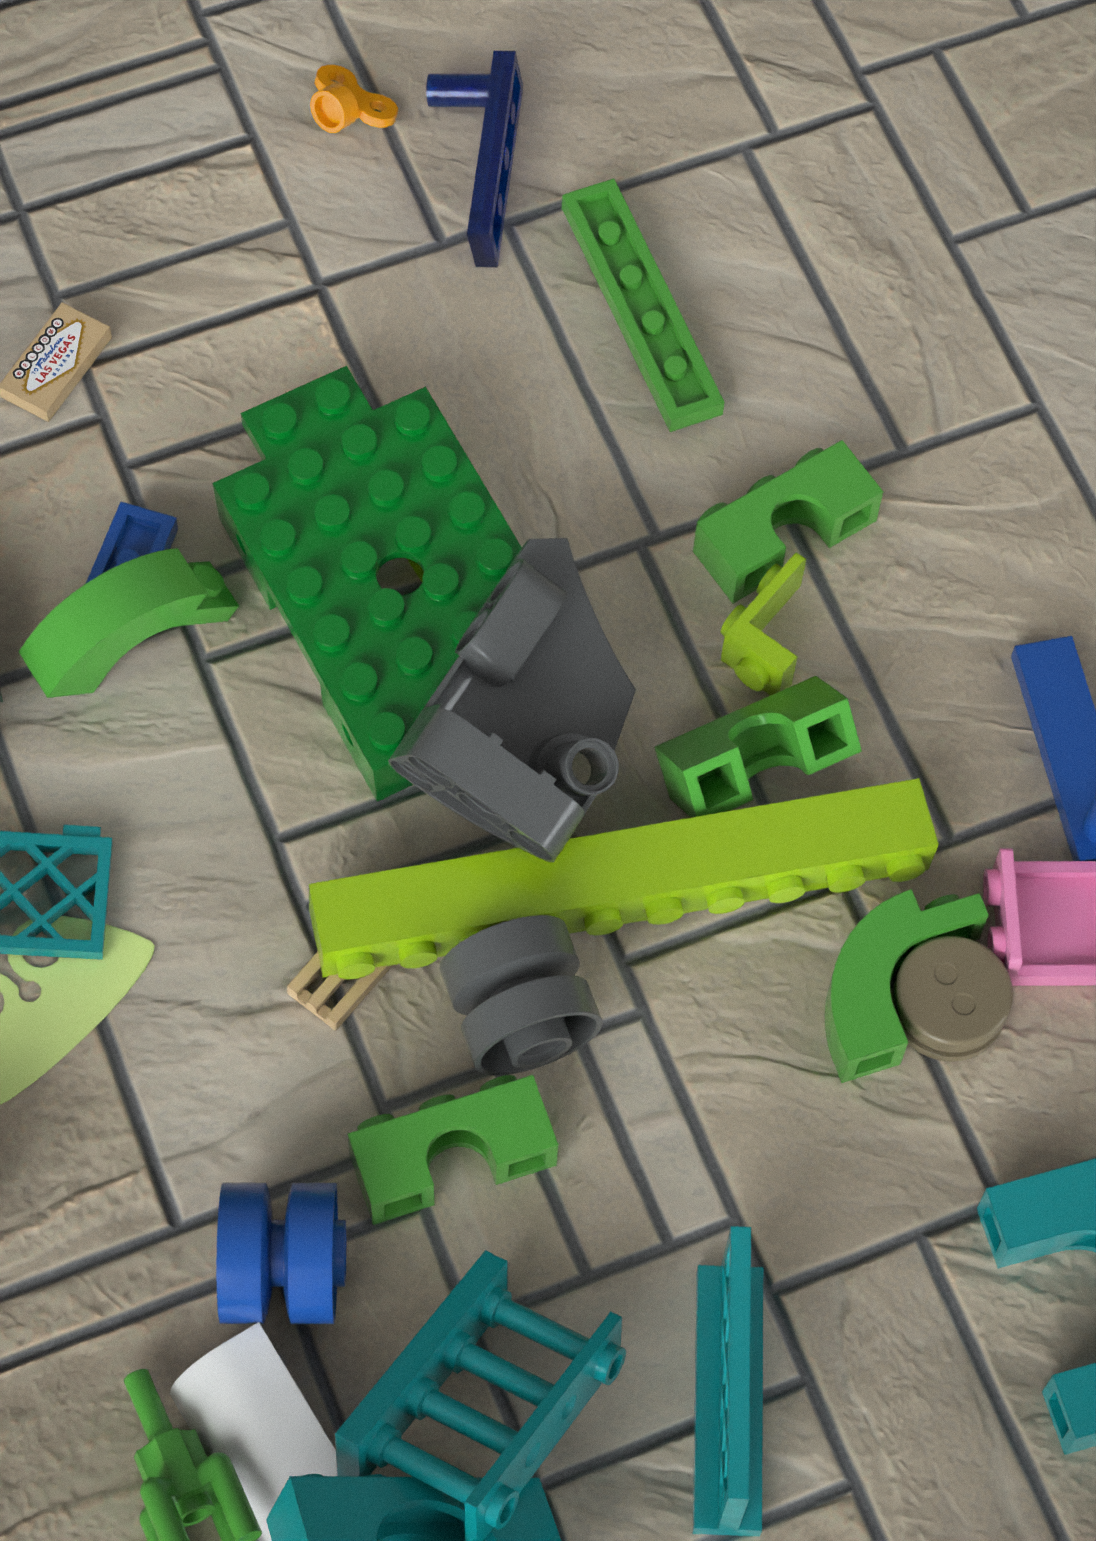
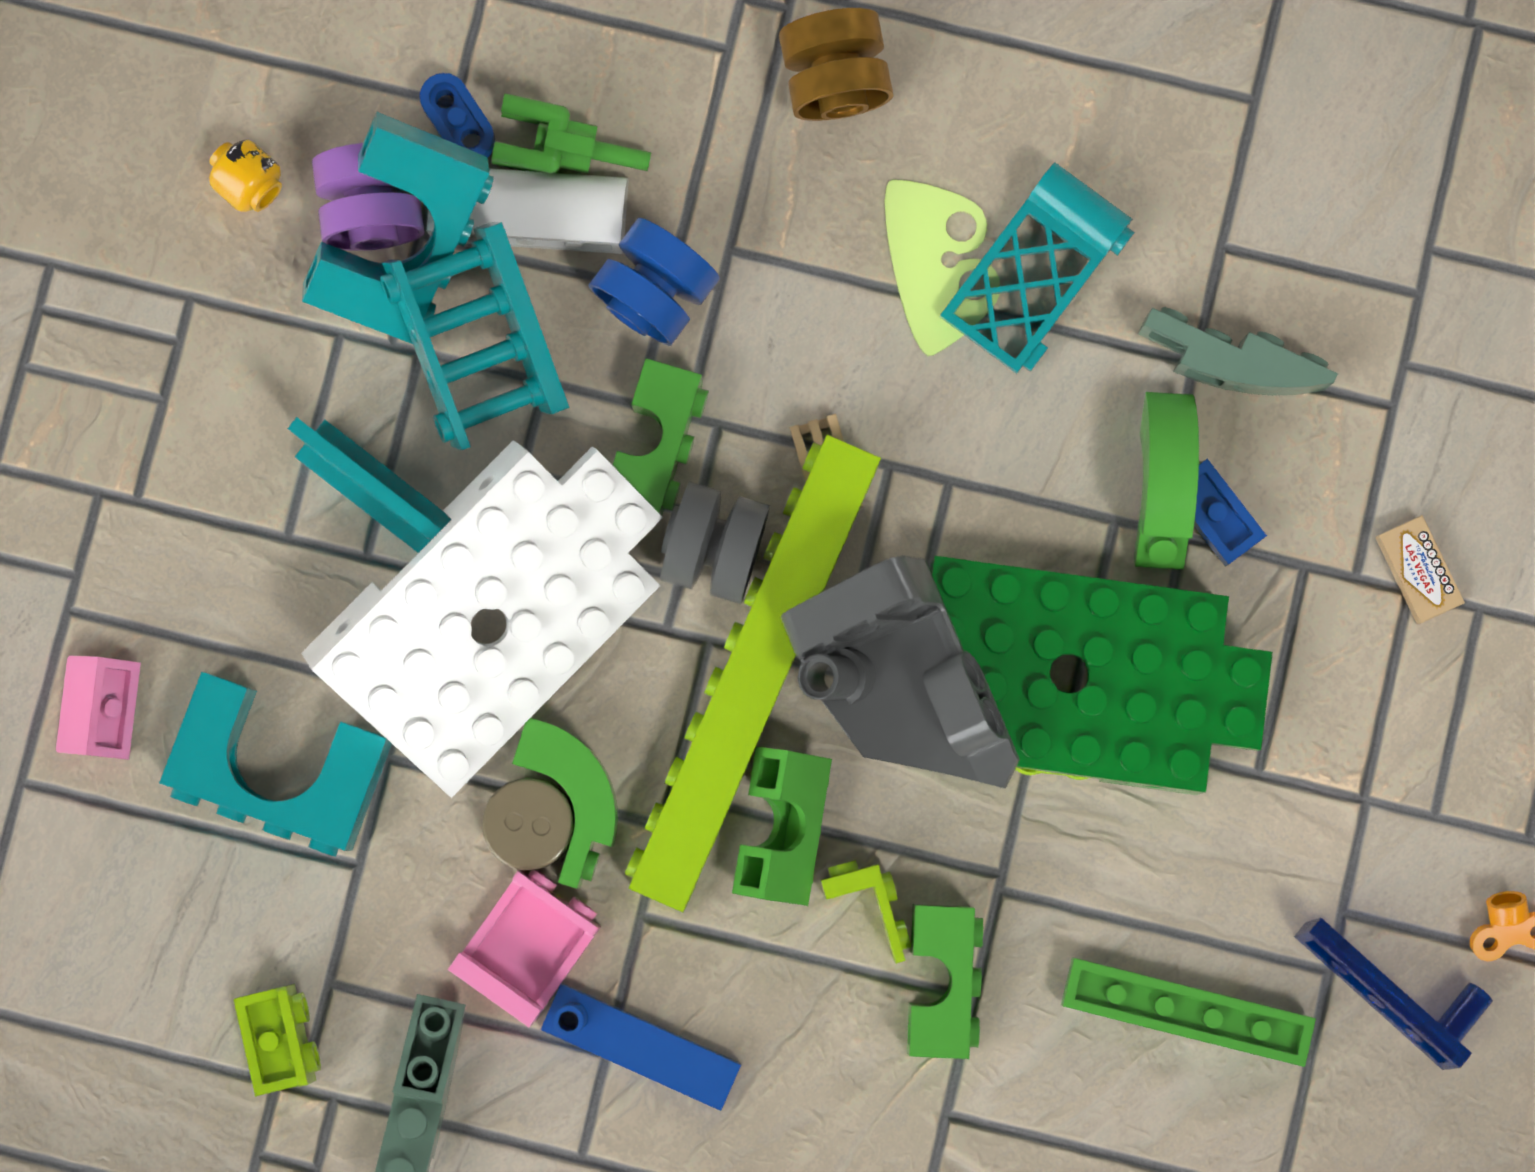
camera: 130 degrees right, 20 degrees up
(686, 1155) = (515, 544): none -> white piece

